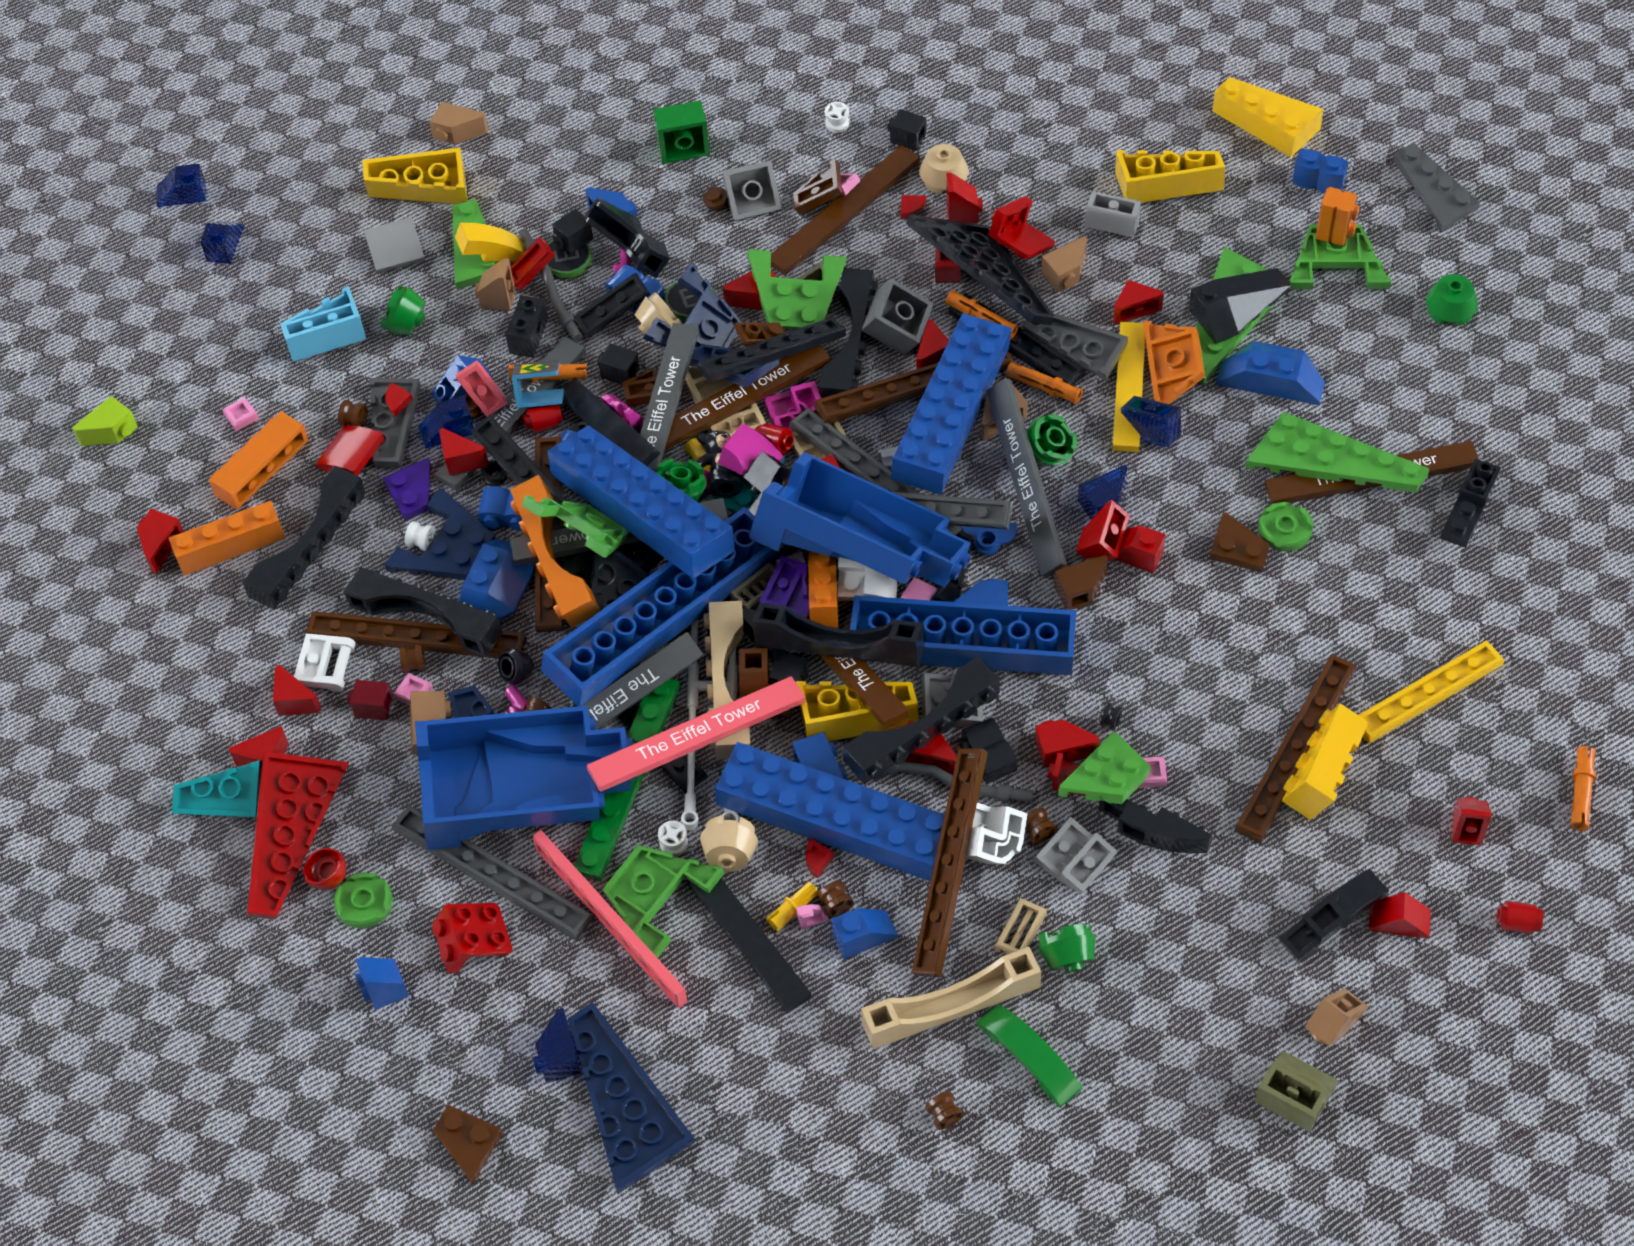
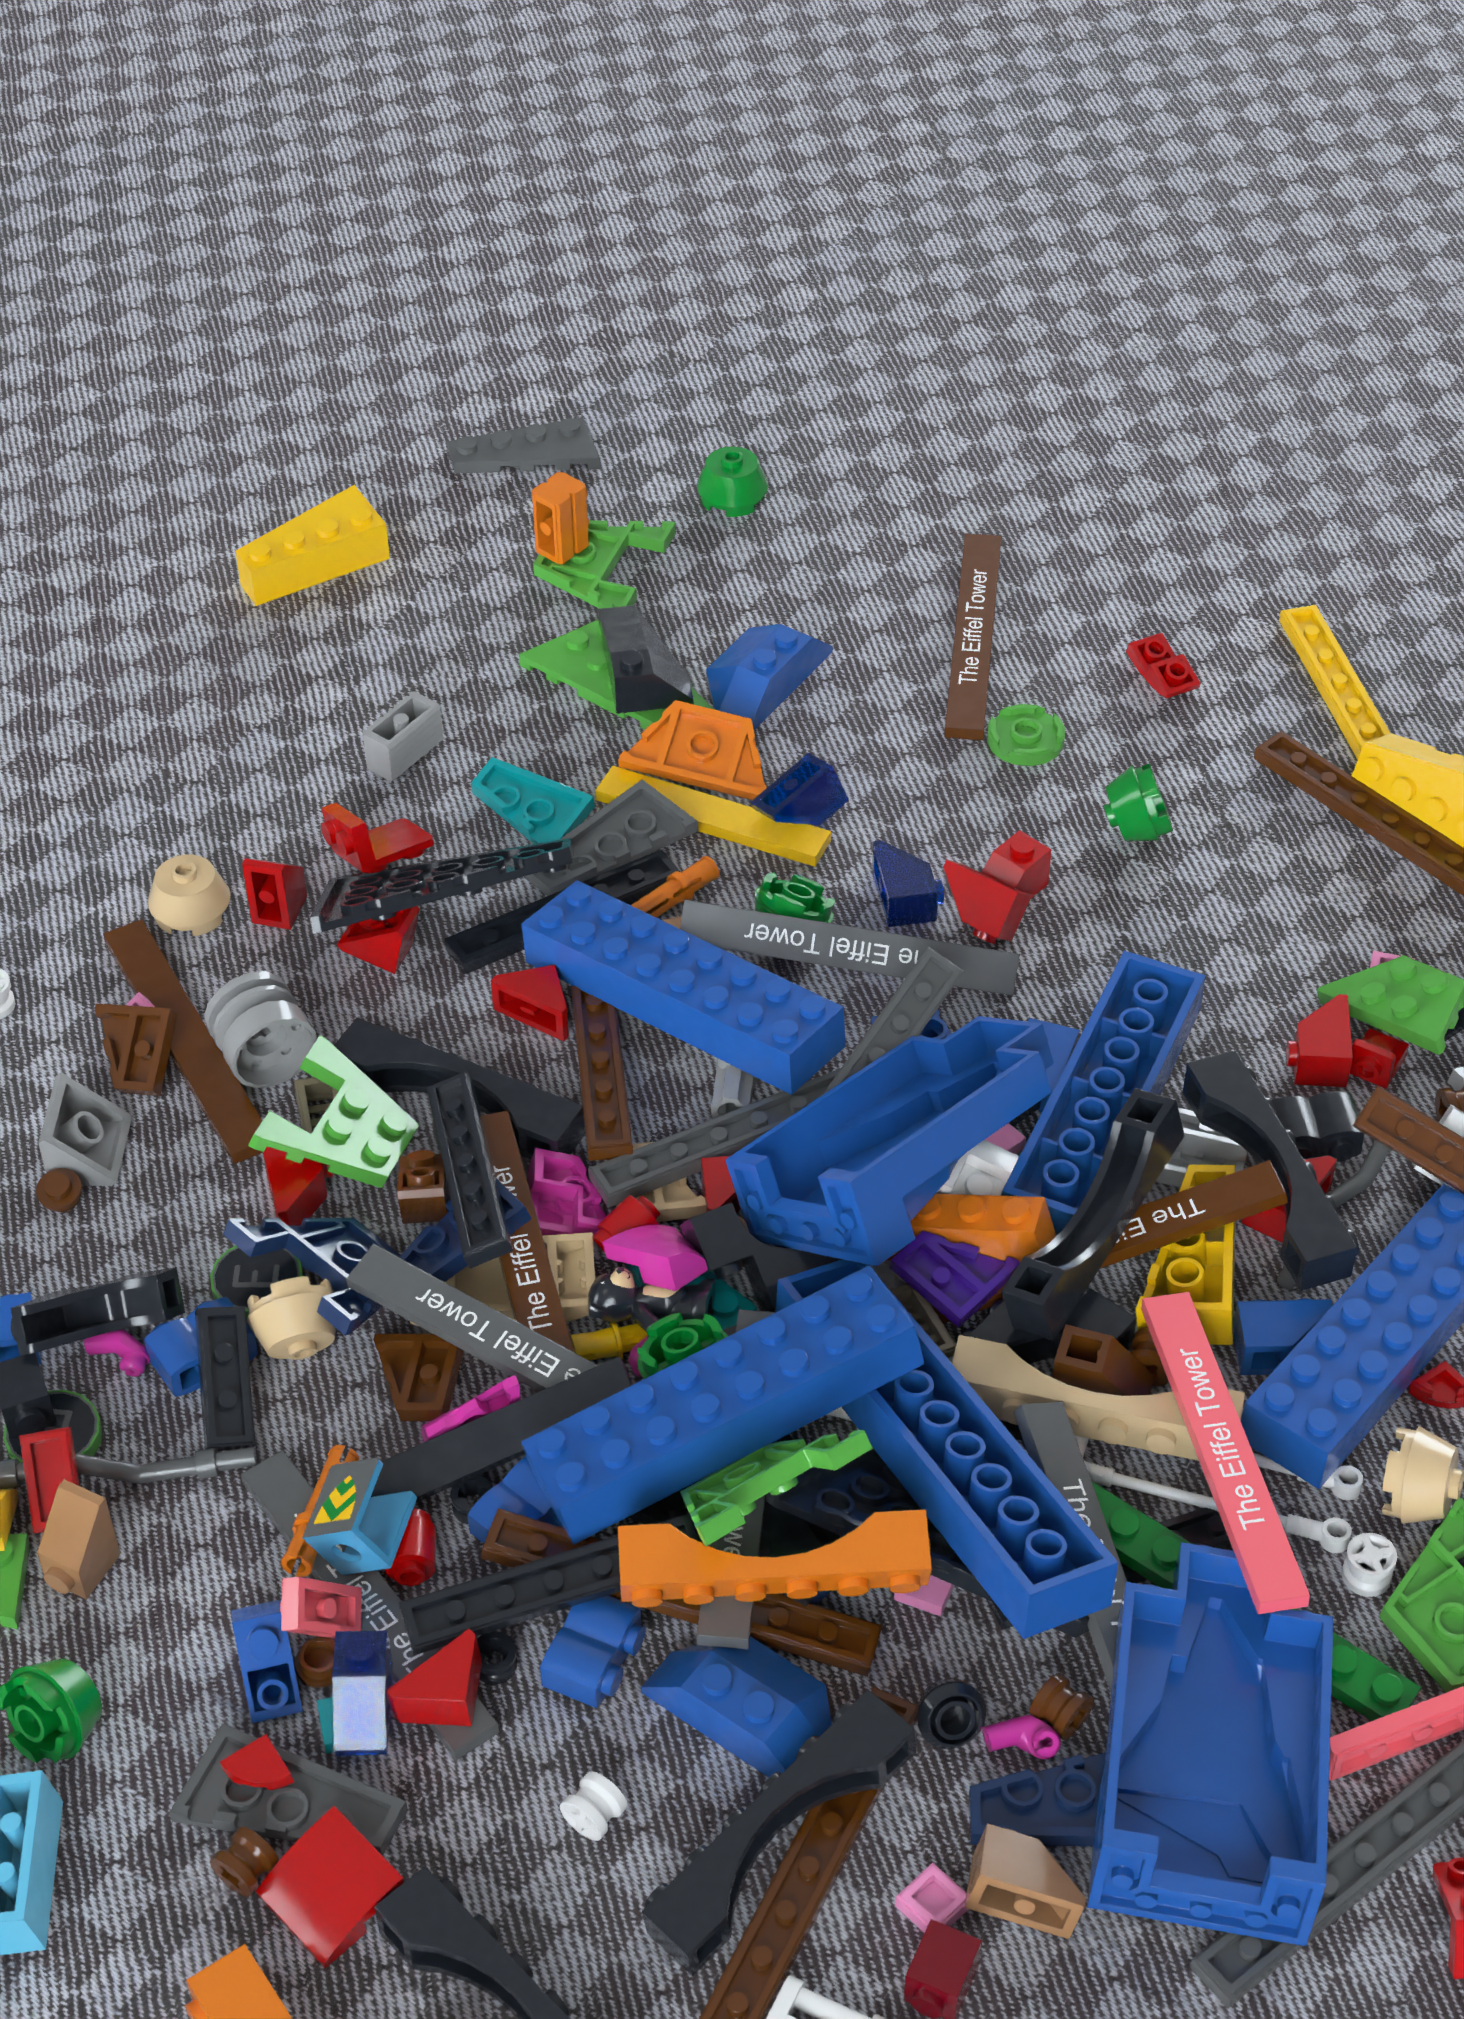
camera: 75 degrees left, 10 degrees down
(410, 488) = (465, 1805): dark purple wing -> none
(412, 658) = (871, 1879): reddish brown wheel -> none
(452, 549) = (634, 1747): dark blue wing -> none
(526, 326) = (192, 1521): black brick -> none
(618, 364) = (352, 1407): black brick -> none
(846, 231) = (259, 1029): none -> light grey wheel
(897, 316) = (468, 1011): dark grey brick -> none
(907, 129) = (79, 916): black brick -> none
(911, 205) = (229, 956): red tile -> none
(974, 309) = (494, 929): orange pin -> none
(1065, 264) = (462, 814): medium nougat slope -> none
(1080, 582) = (1050, 952): reddish brown slope -> none
(1096, 295) = (530, 802): none -> teal wing
(1111, 716) = (1292, 983): black bush -> none
(1136, 302) = (567, 758): red slope -> none
(1168, 174) = (362, 667): yellow wedge -> none
(1229, 596) = (1137, 805): none -> green cone
(1238, 545) = (1038, 786): reddish brown wing -> none
(1319, 171) = (448, 529): blue brick -> none
(1328, 455) = (930, 663): bright green wing -> none
(1392, 586) = (1161, 667): none -> red slope
(1470, 503) = (1062, 561): black slope -> none

